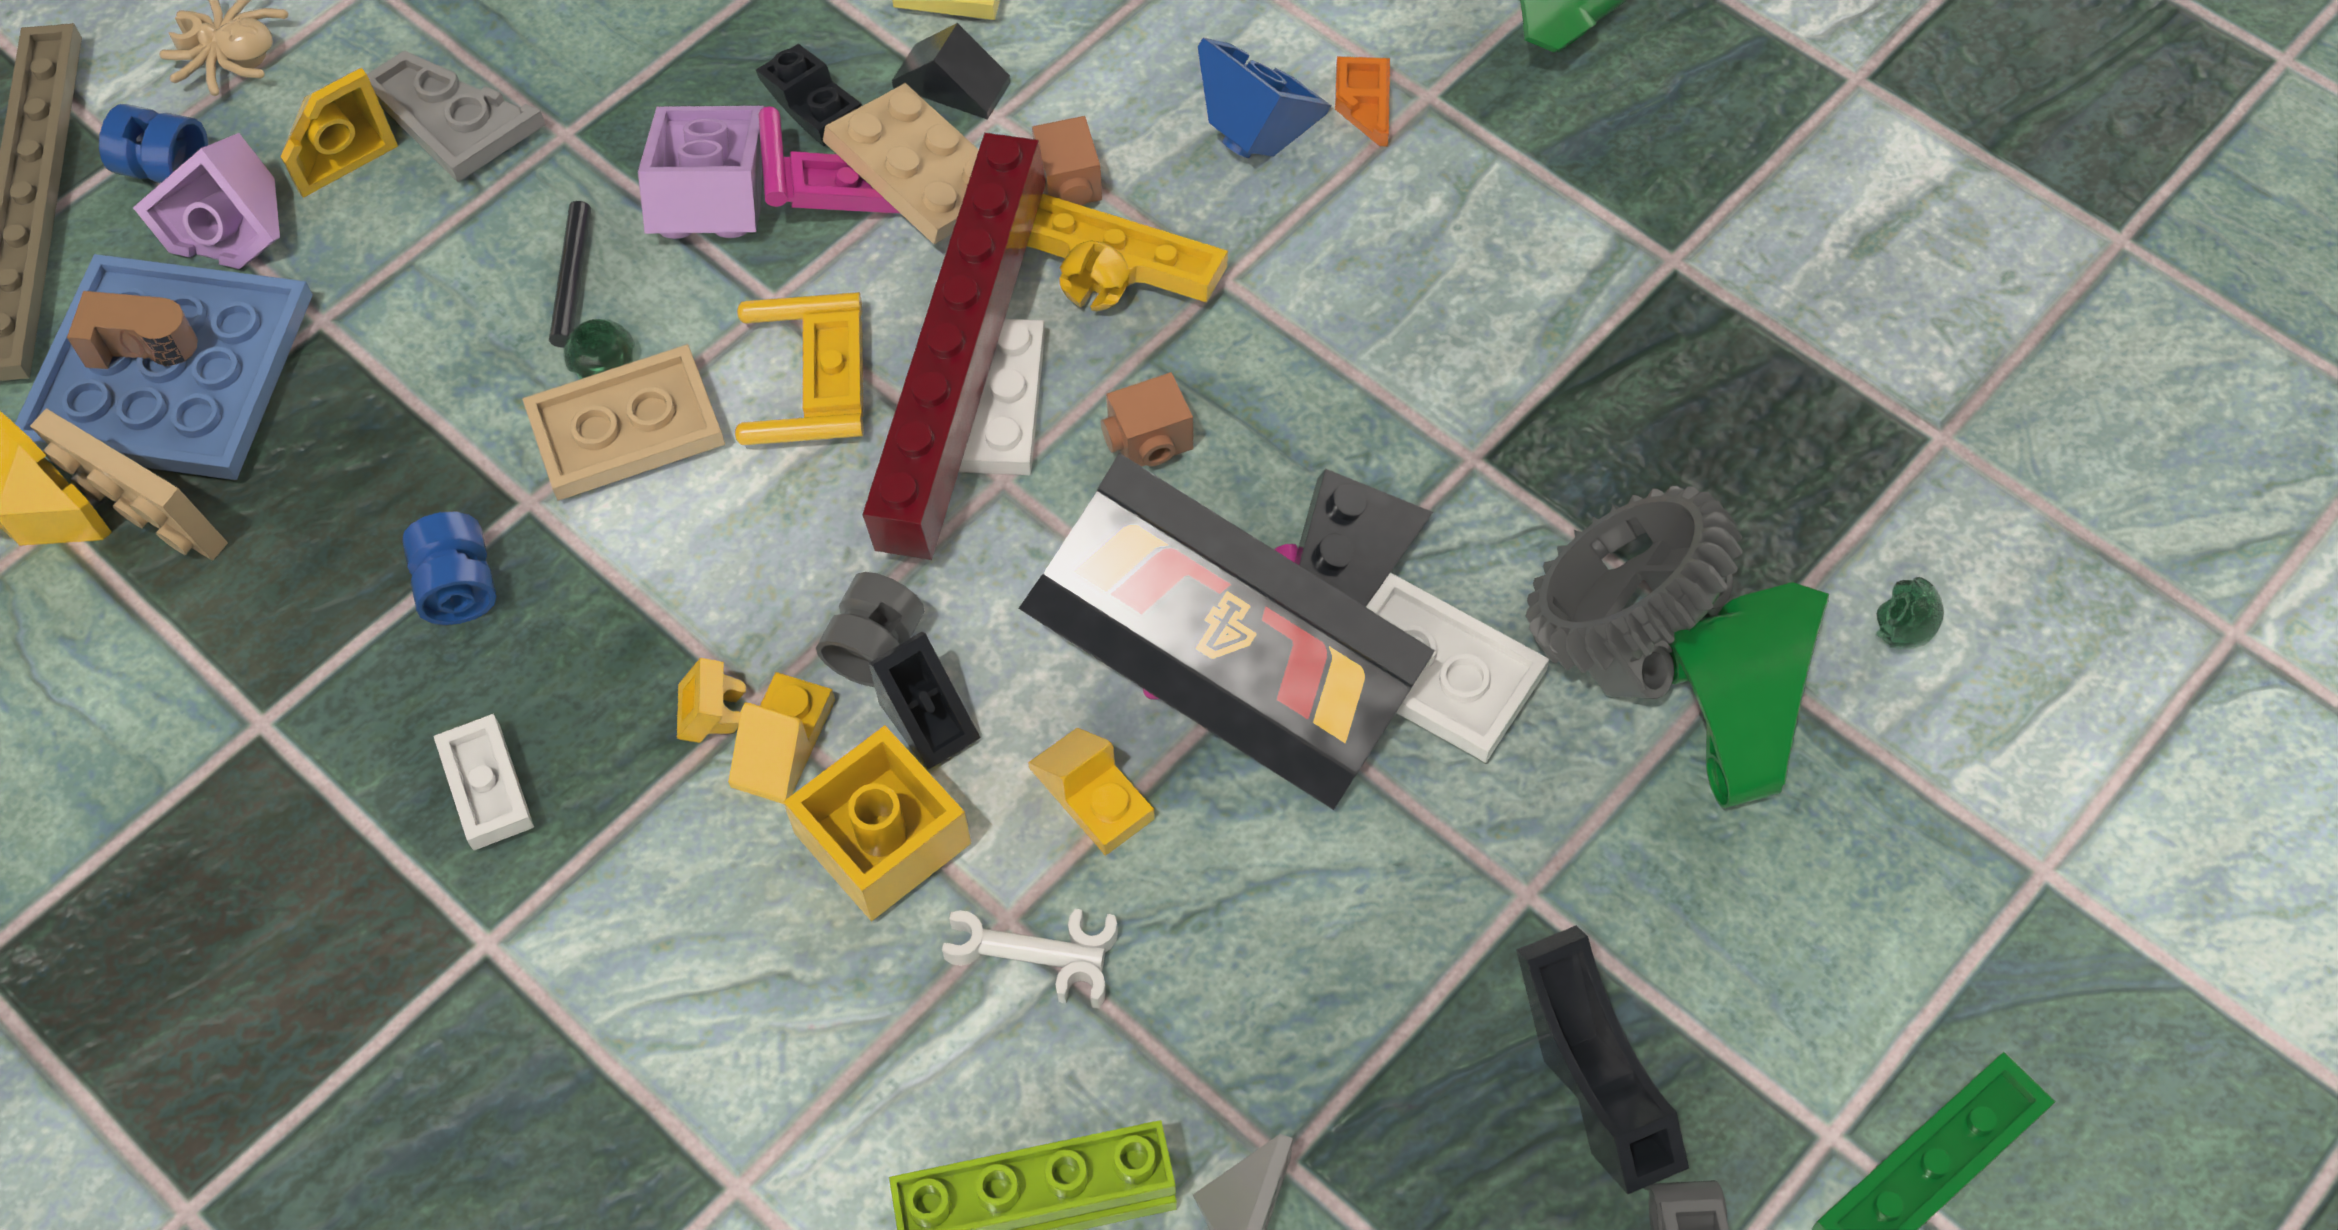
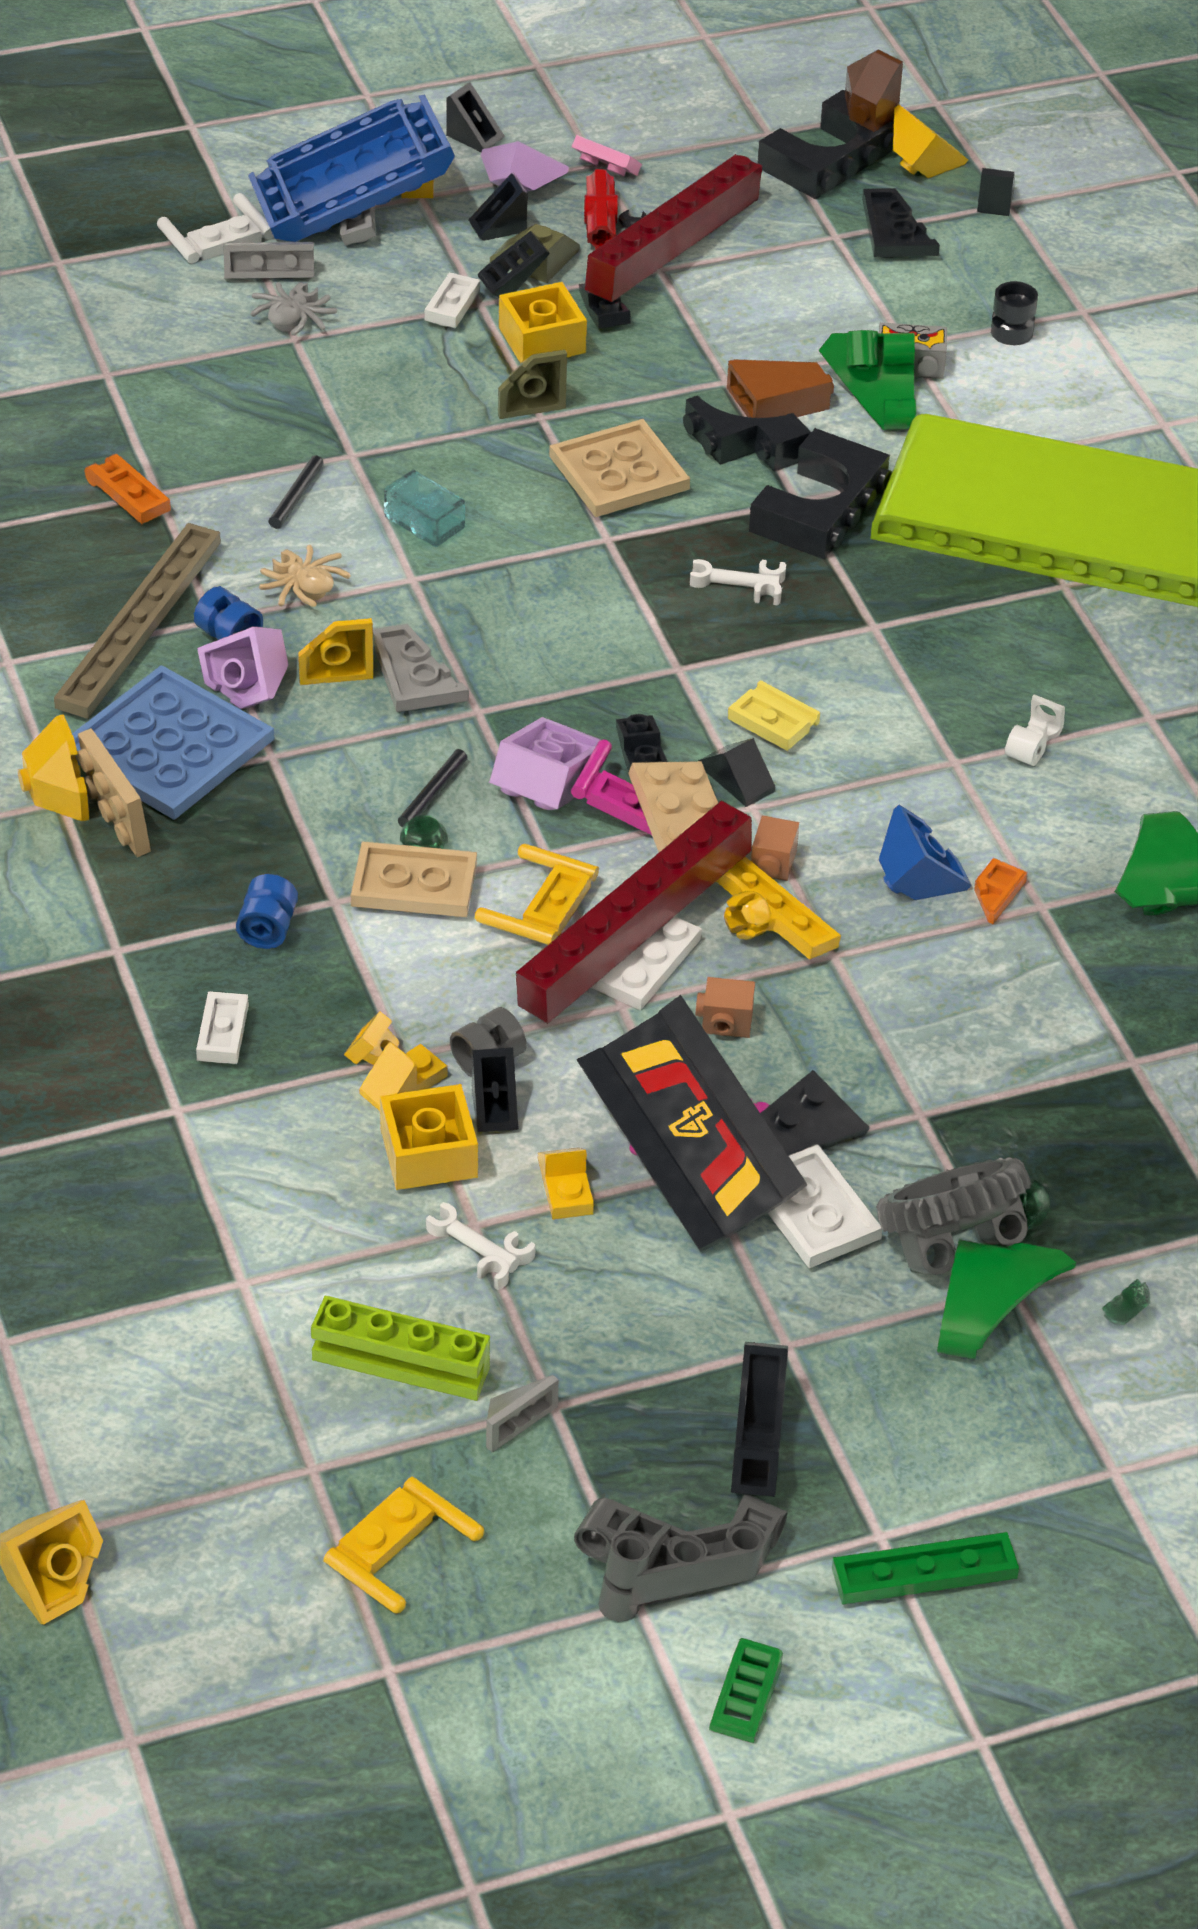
camera: 25 degrees right, 15 degrees down
(131, 328) = (160, 711): medium nougat leg -> none

